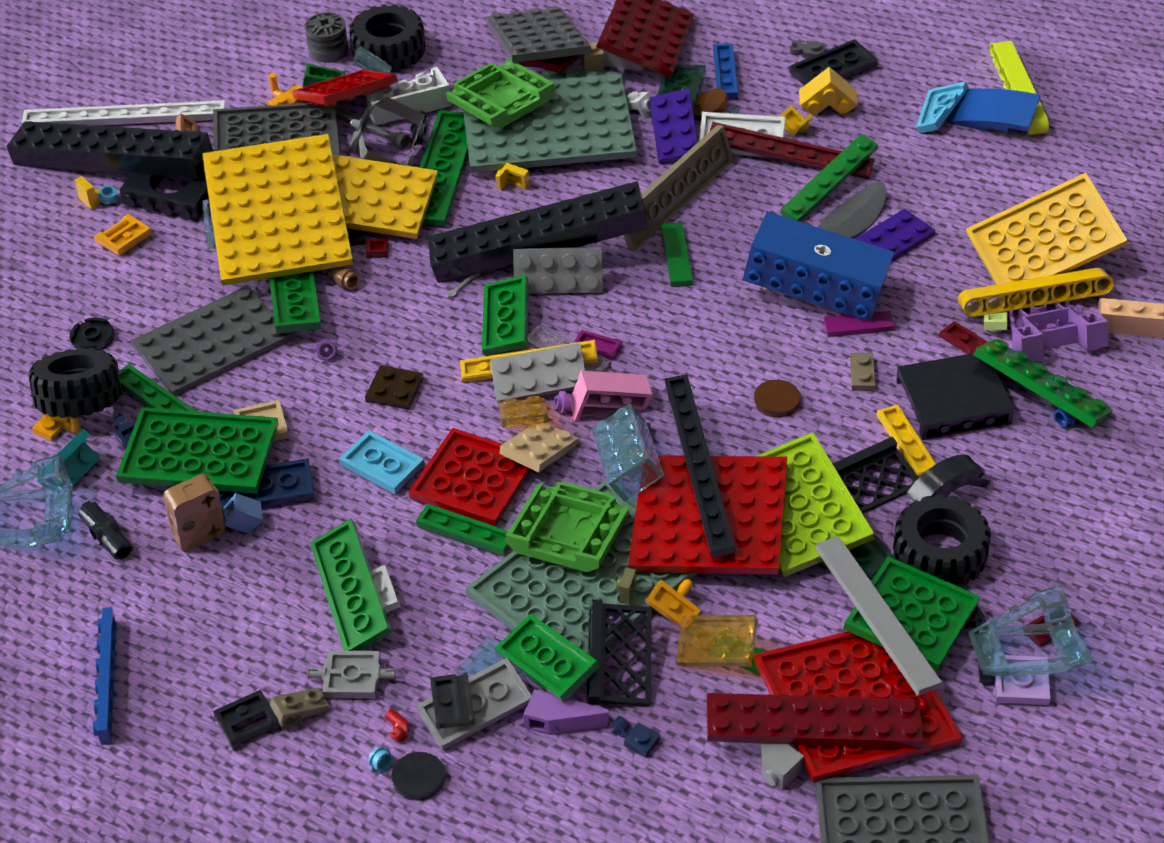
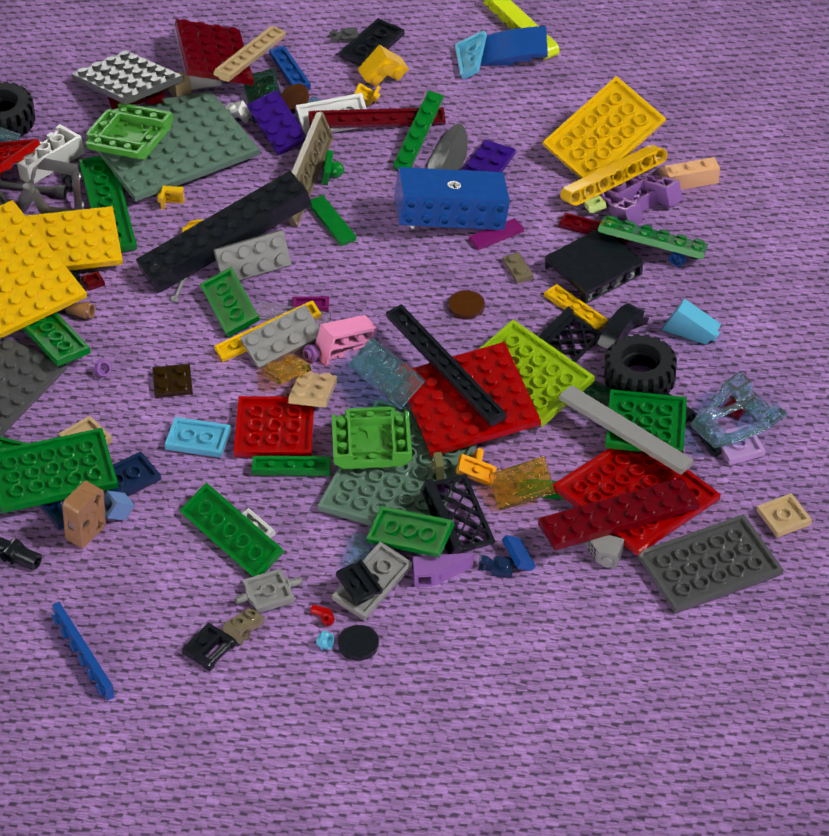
camera: 25 degrees left, 0 degrees up
(669, 728) = (518, 553): none -> blue tile
(682, 41) = (249, 53): none -> tan plate
(706, 193) = (334, 169): none -> green tile
(1032, 794) = (784, 515): none -> tan plate
(1038, 504) = (692, 323): none -> medium azure slope

